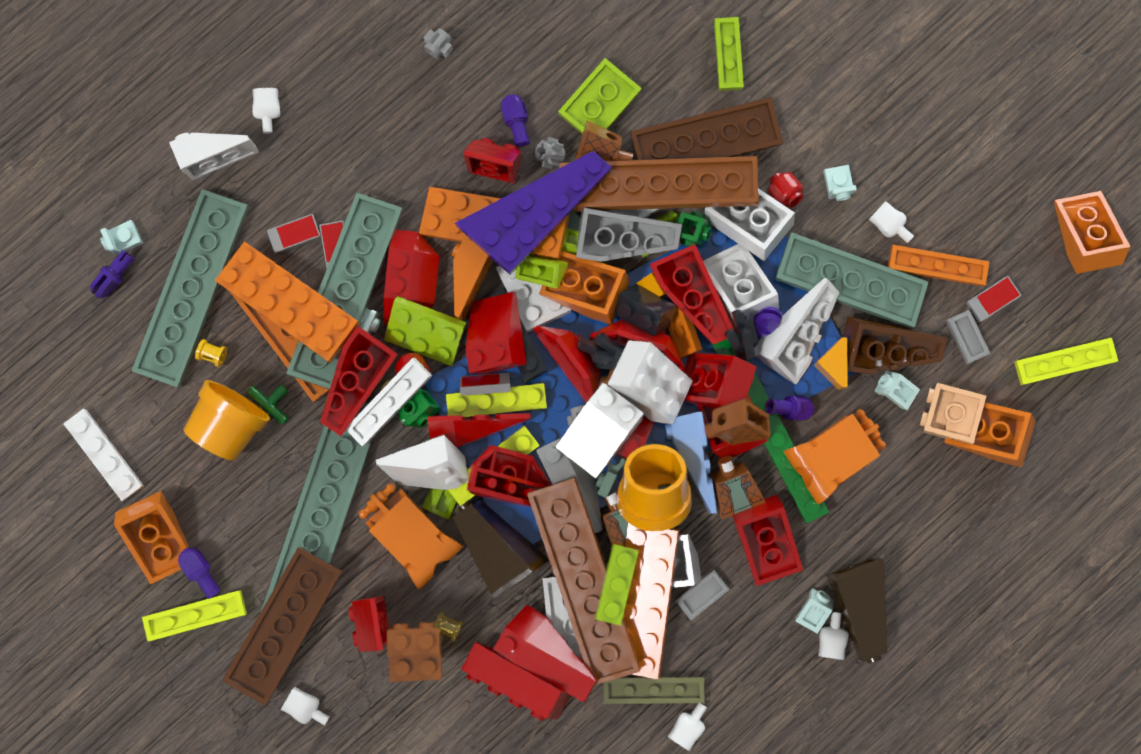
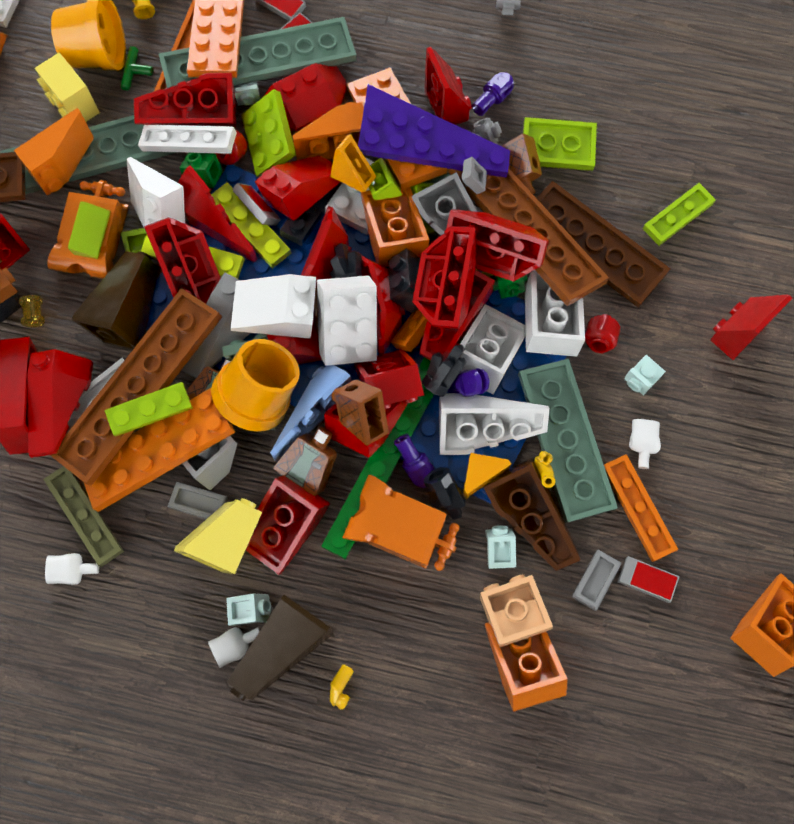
camera: 55 degrees right, 10 degrees down
(262, 472) = (65, 88): none -> light yellow brick
(327, 523) = (56, 151): none -> orange slope
(420, 535) = (88, 230): none -> lime slope
(520, 287) = (351, 166): none -> light orange slope
(598, 196) = (474, 175): none -> light grey plate
(673, 221) = (501, 244): none -> red wedge
(676, 284) = (447, 277): none -> red wedge
(751, 593) = (222, 536): none -> light yellow slope
(829, 401) = (445, 492): none -> black rock
(860, 75) = (747, 323): none -> red slope
(867, 315) = (544, 469): none -> yellow arm
(916, 580) = (338, 684): none -> yellow arm
(1066, 361) = (643, 686): neon yellow plate -> none

